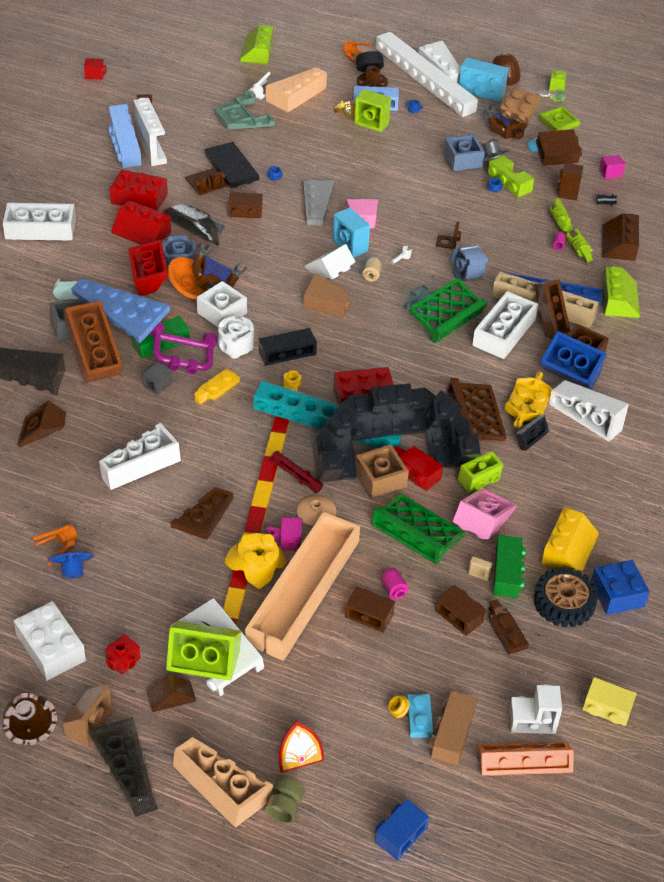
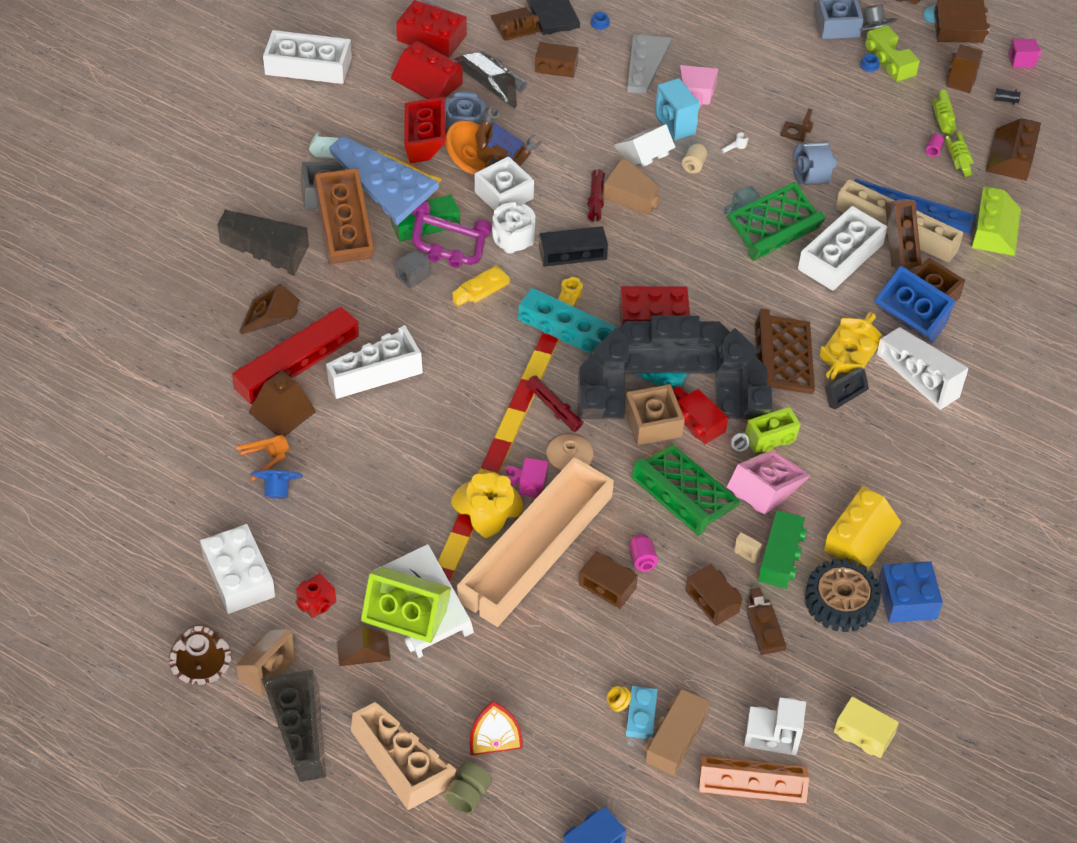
camera: 10 degrees right, 5 degrees up
(64, 499) = (281, 405): none -> reddish brown slope
(69, 458) = (297, 352): none -> red brick
(205, 515) = (439, 442): reddish brown wing -> none
(298, 308) = (595, 201): none -> dark red pin
(456, 487) = (740, 445): none -> light grey hinge

